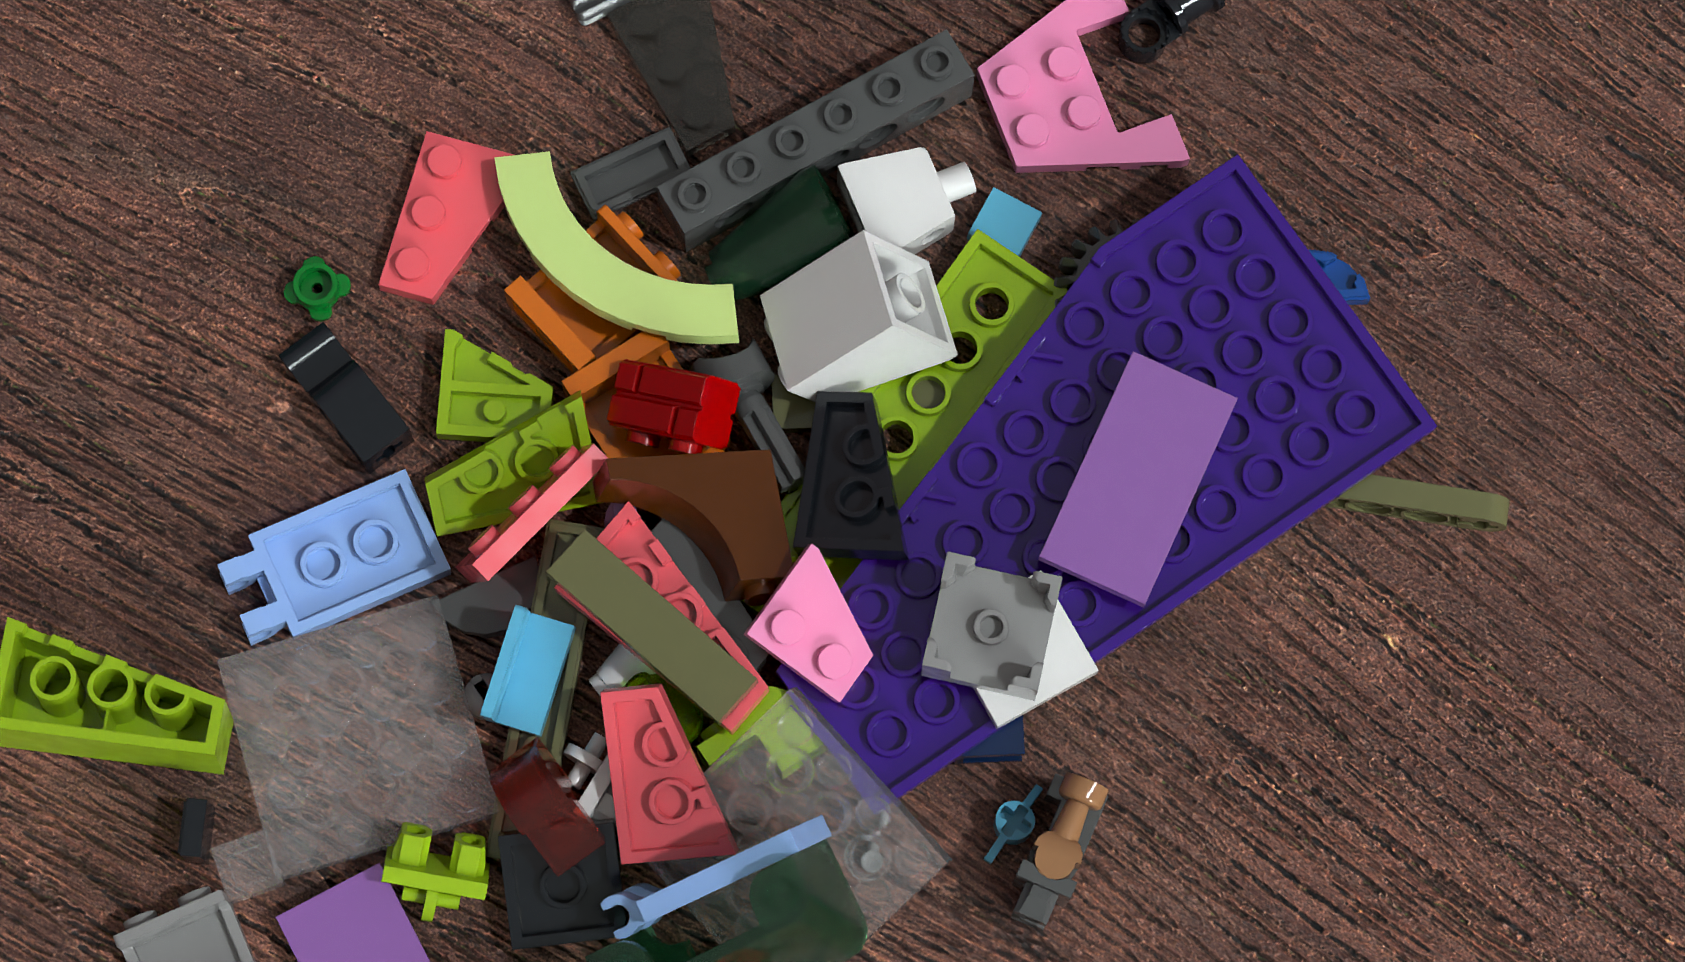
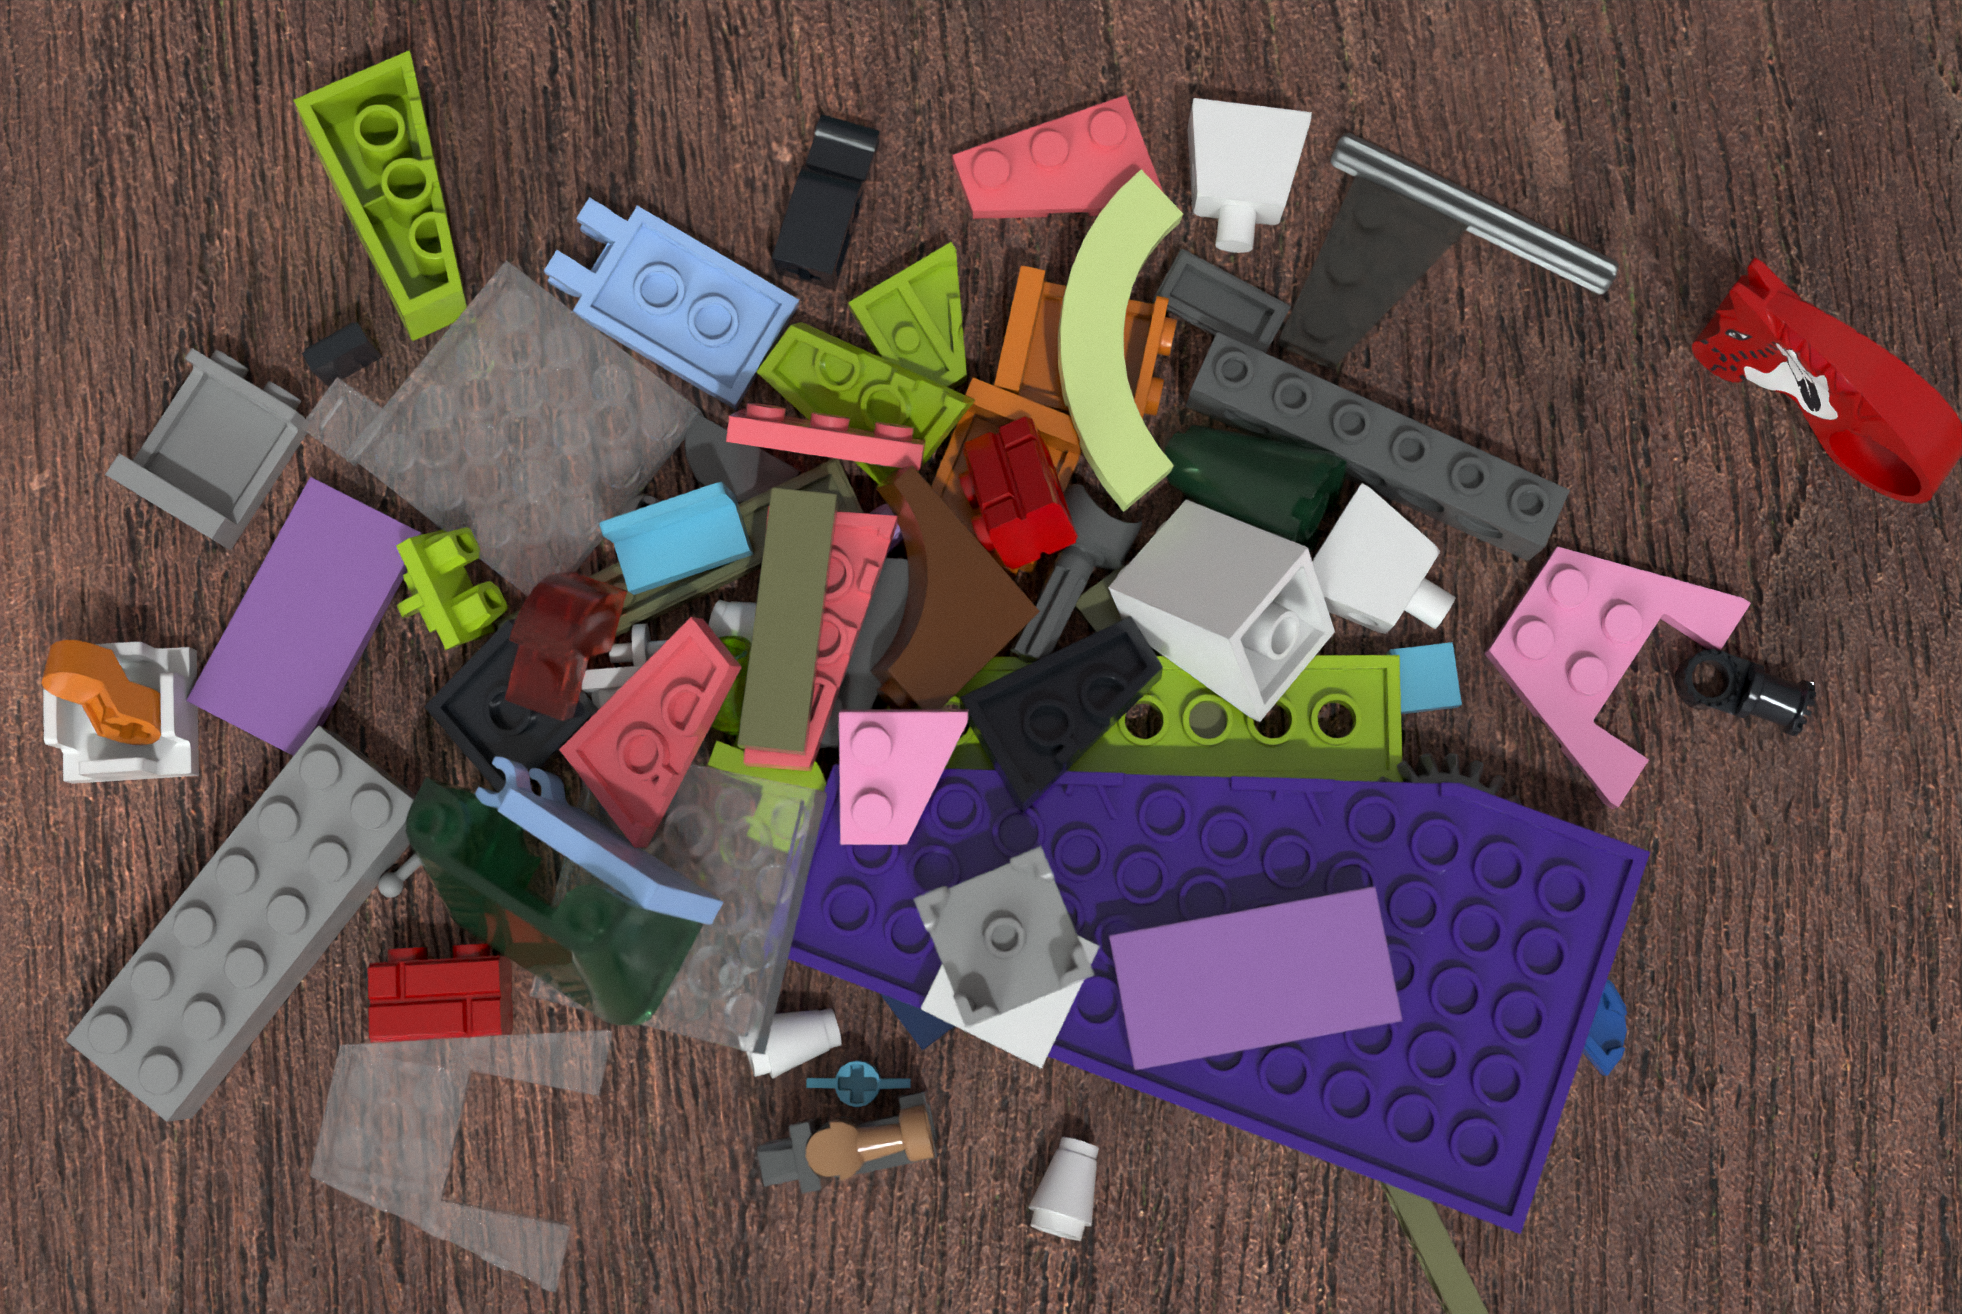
camera: 60 degrees right, 5 degrees up
(310, 274) = (909, 88): green plate -> none
(542, 87) = (1242, 165): none -> white torso
(956, 836) = (795, 1040): none -> white cone
(1194, 726) = (1067, 1191): none -> white cone

